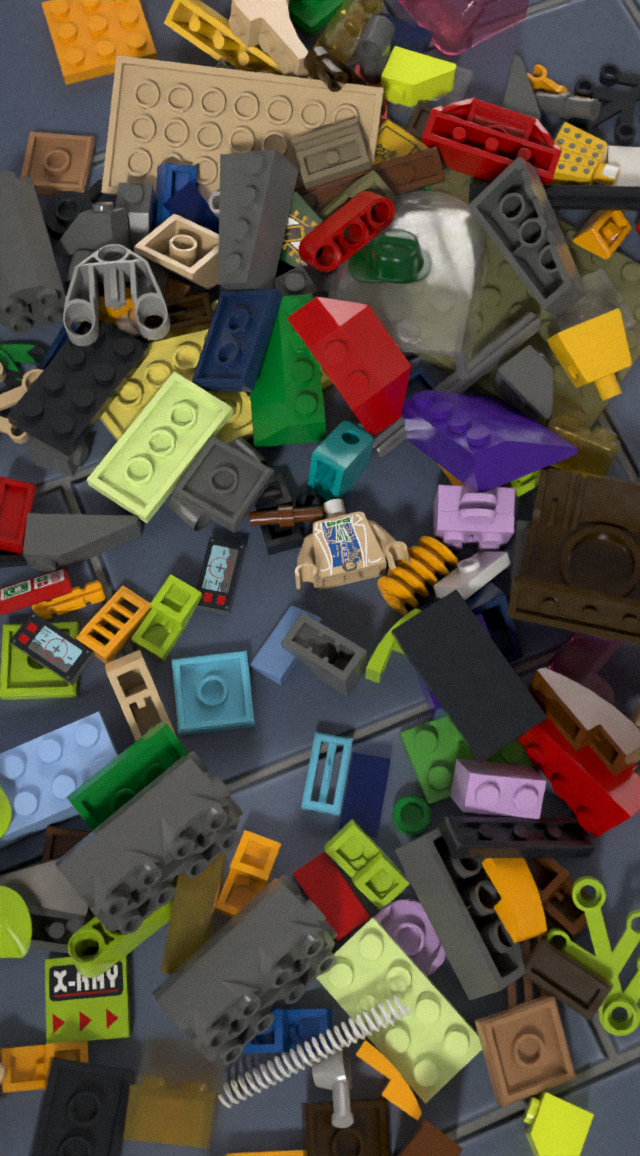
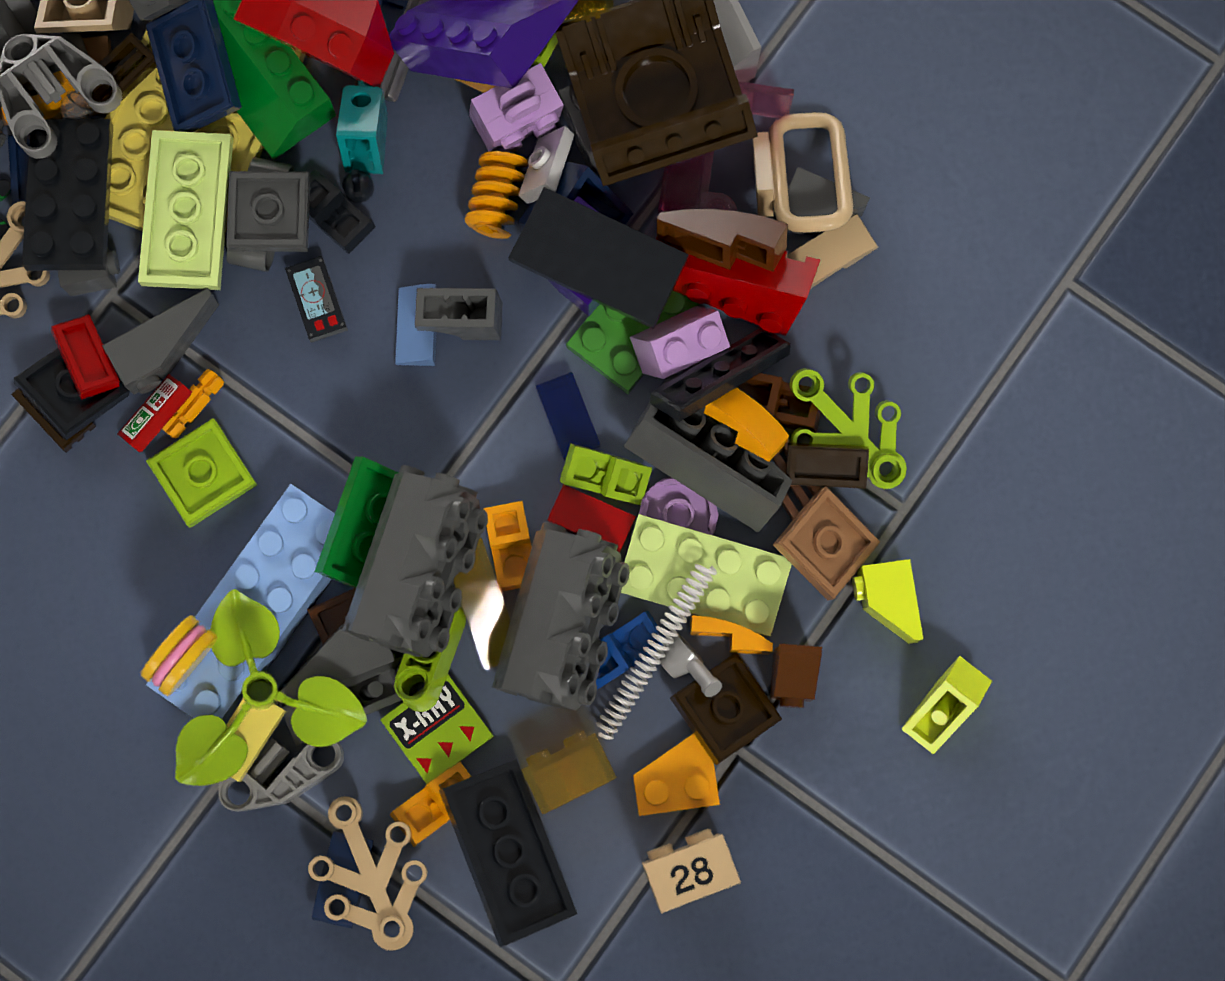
camera: 35 degrees left, 10 degrees up
(52, 648) = (207, 454): tile -> none
(97, 623) = (256, 430): light orange slope -> none
(137, 693) = (313, 449): tan slope -> none
(167, 619) = (293, 365): lime slope -> none
(213, 693) = (378, 407): medium azure tile -> none
(286, 515) = (344, 207): reddish brown bar -> none
(321, 806) = (535, 449): medium azure tile -> none
(346, 549) = (418, 206): tan torso -> none
(381, 655) = (509, 270): lime slope -> none
(411, 815) = (618, 410): green tile -> none

